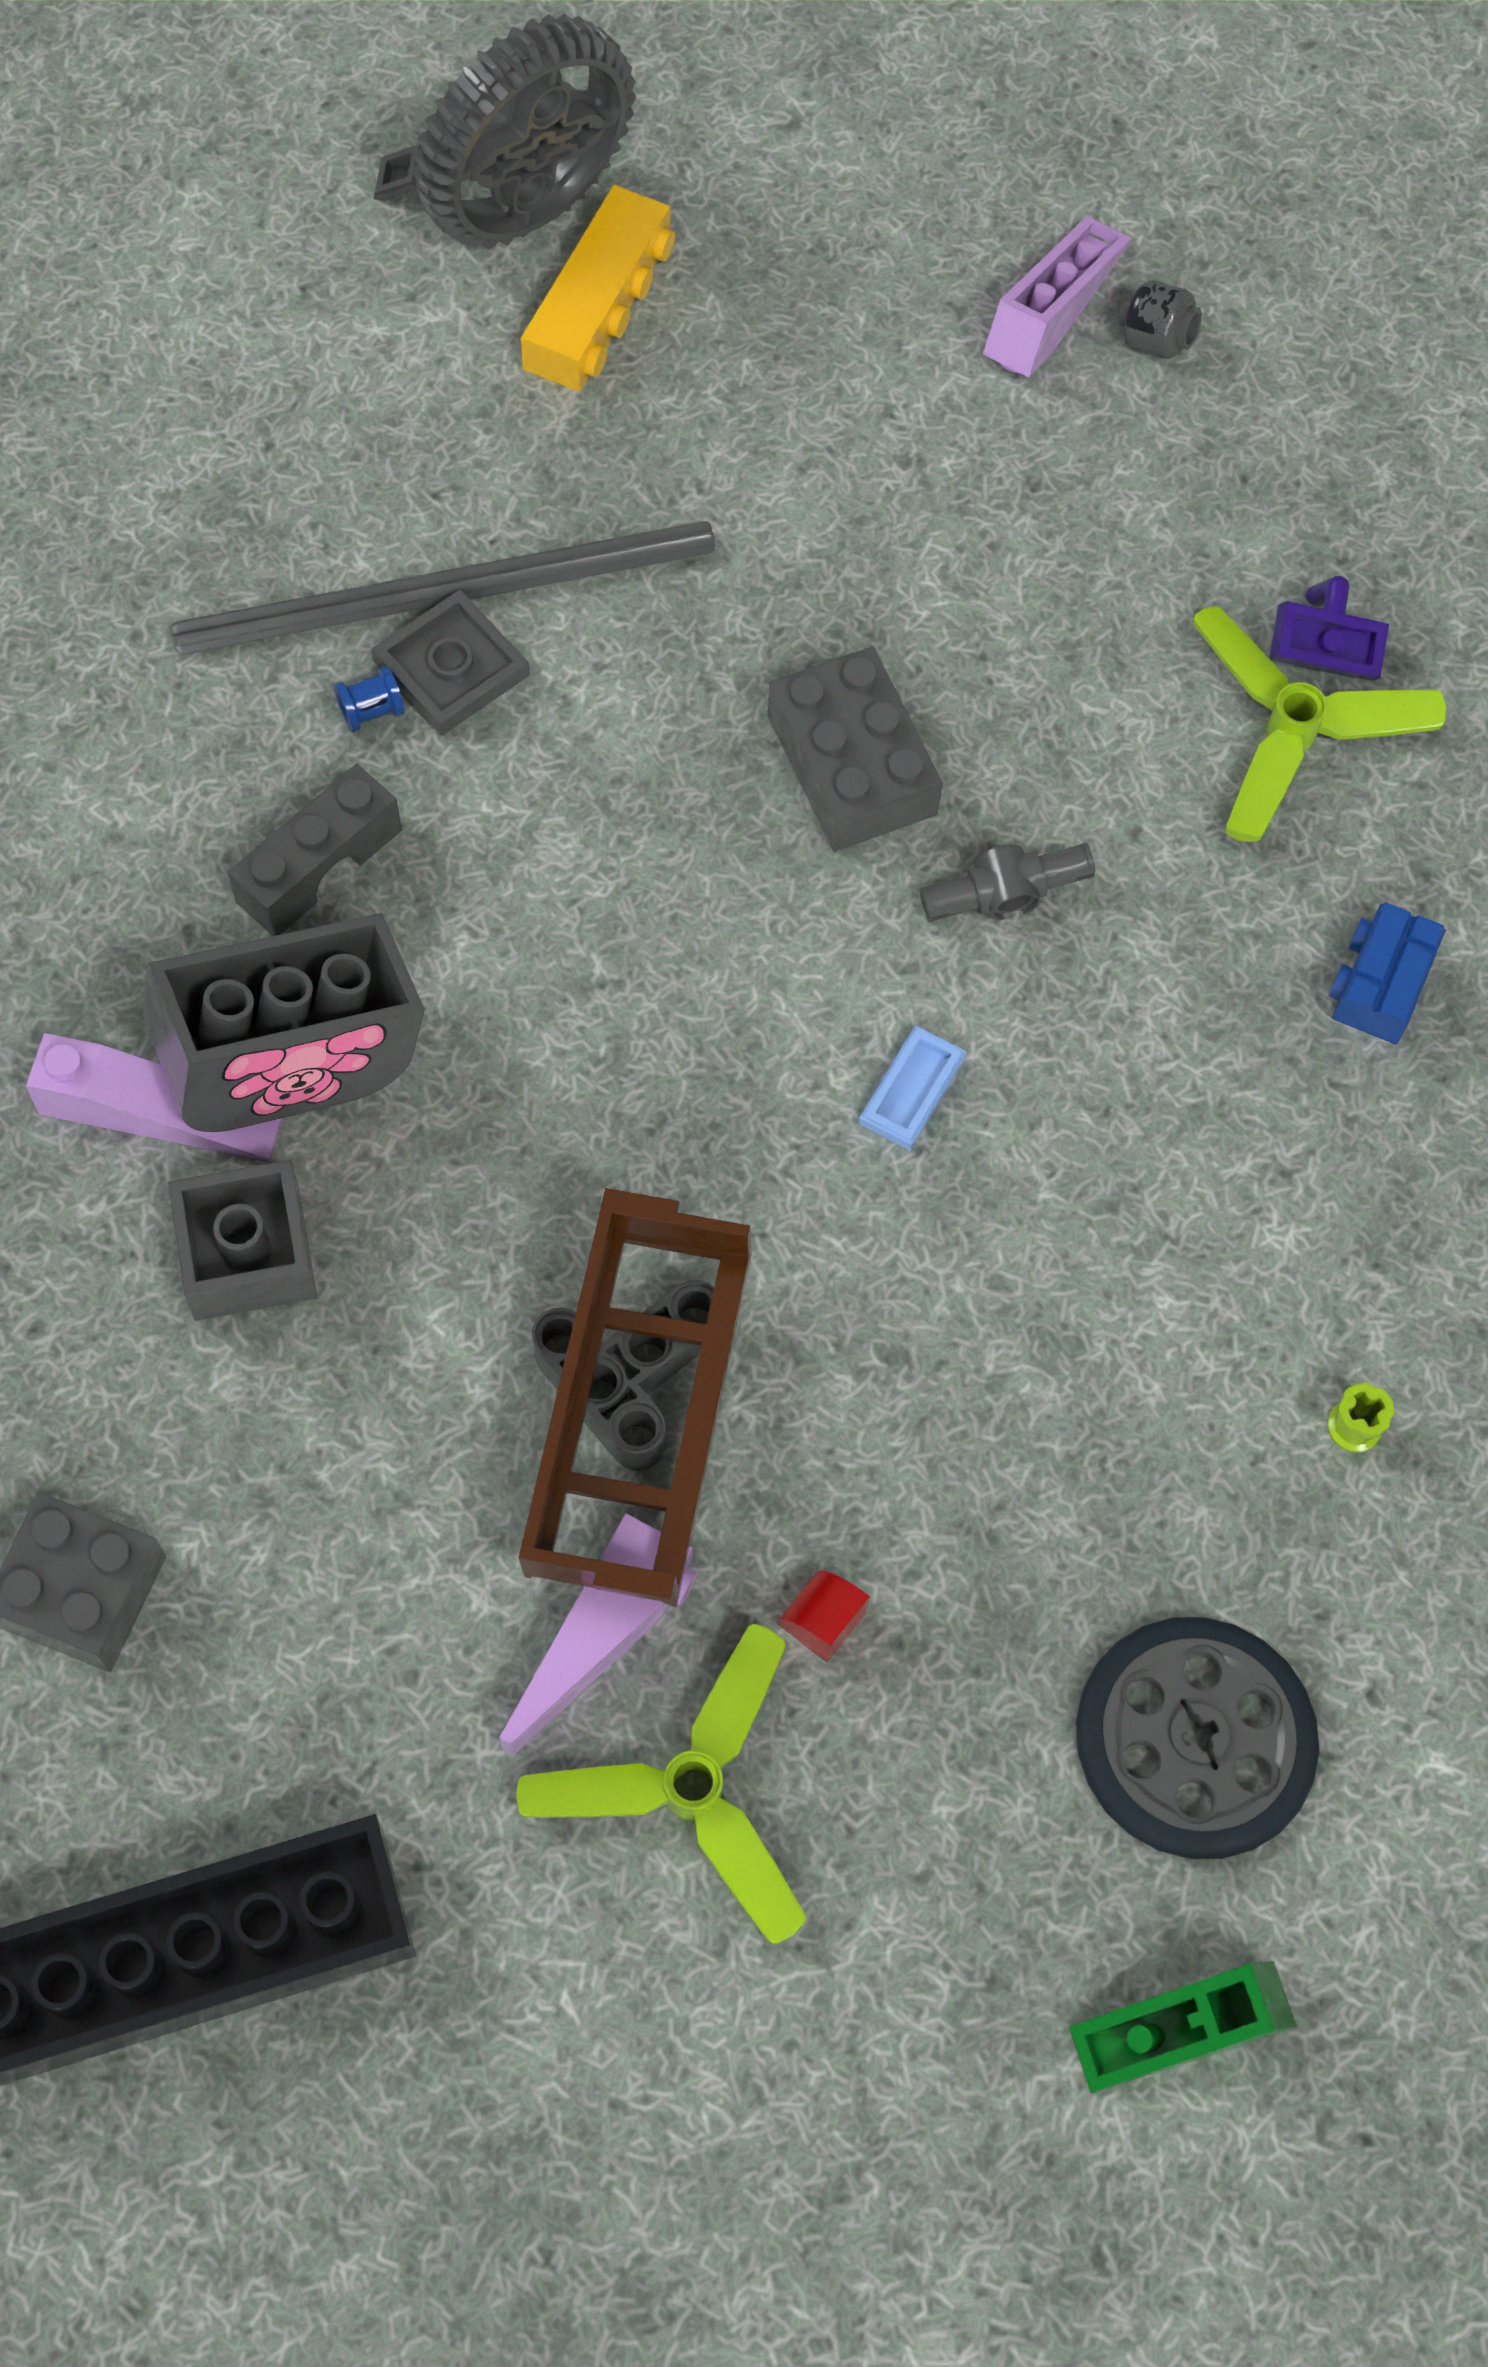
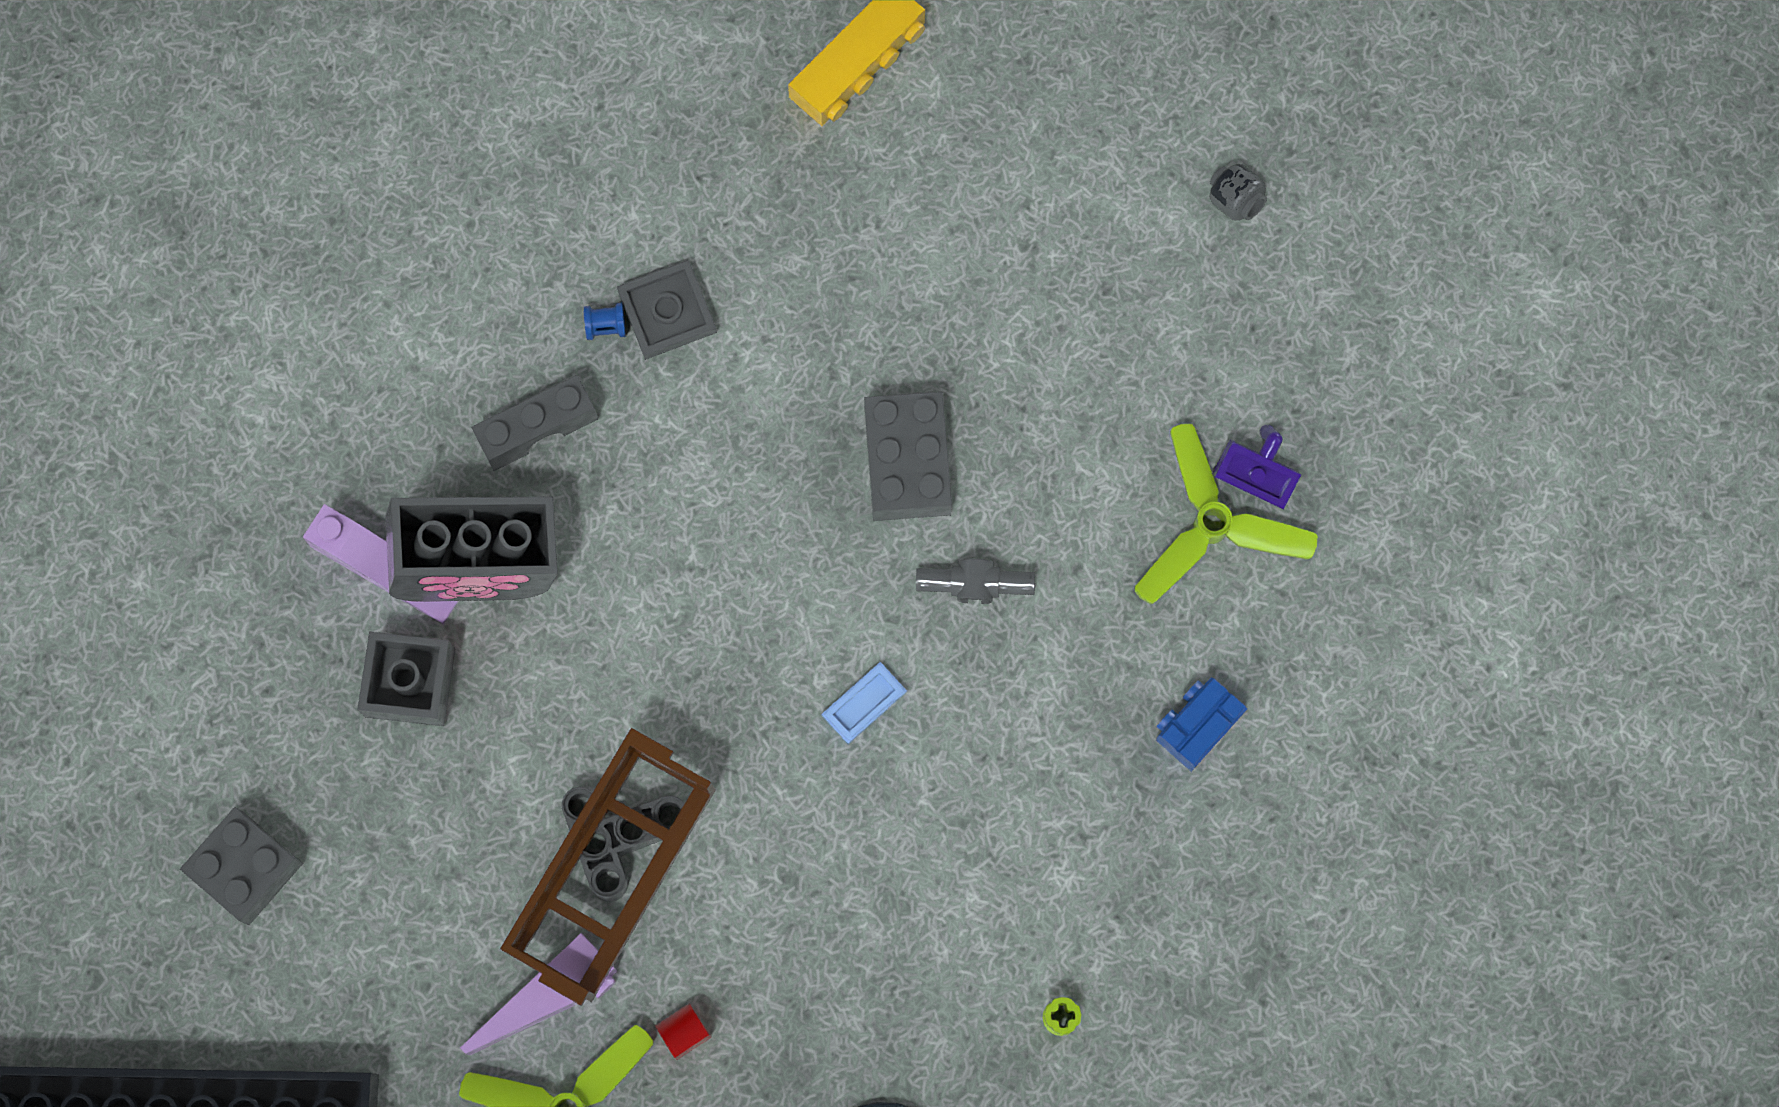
camera: 20 degrees right, 10 degrees up
(432, 588) = (681, 250): dark grey axle -> none
(1052, 296) = (1172, 150): lavender slope -> none

